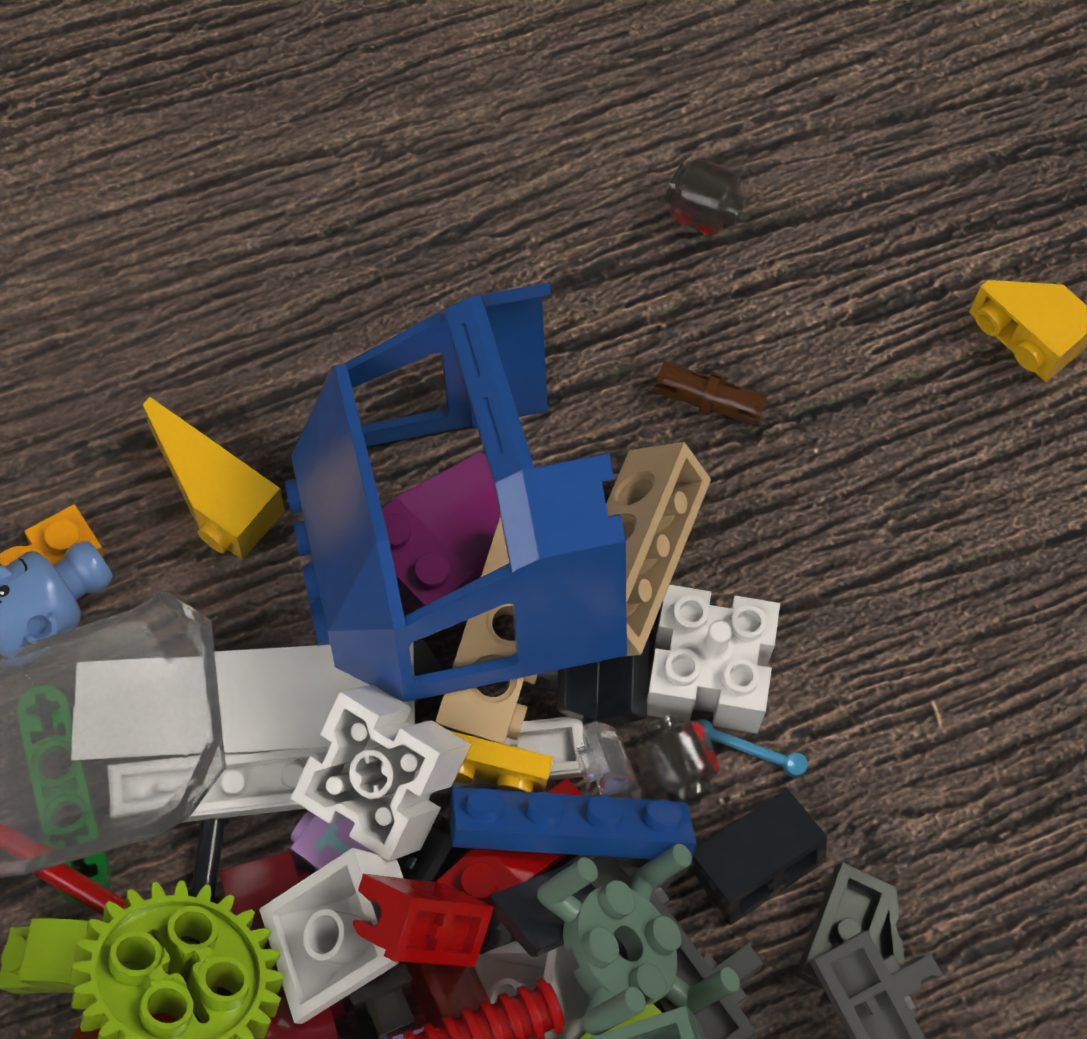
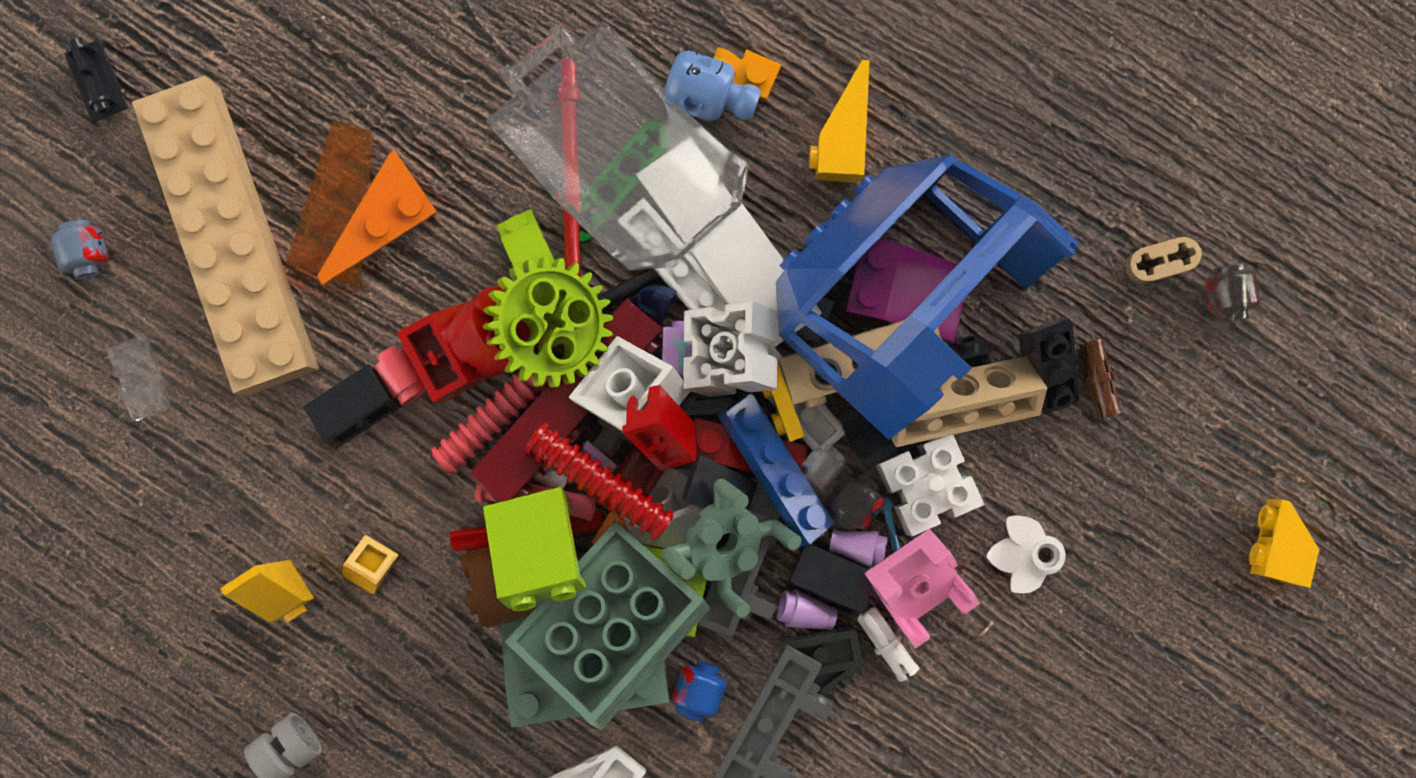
camera: 60 degrees right, 20 degrees up
(247, 840) = (655, 301): none -> dark blue tile
(608, 244) = (1165, 268): none -> tan beam
(646, 415) = (1054, 358): none -> black slope
(739, 790) = (859, 546): none -> lavender cone
(779, 915) = (805, 611): none -> lavender cone
(826, 744) = (917, 581): none -> bright pink panel
(866, 612) = (1020, 554): none -> white plate
(884, 839) = (887, 643): none -> white axle

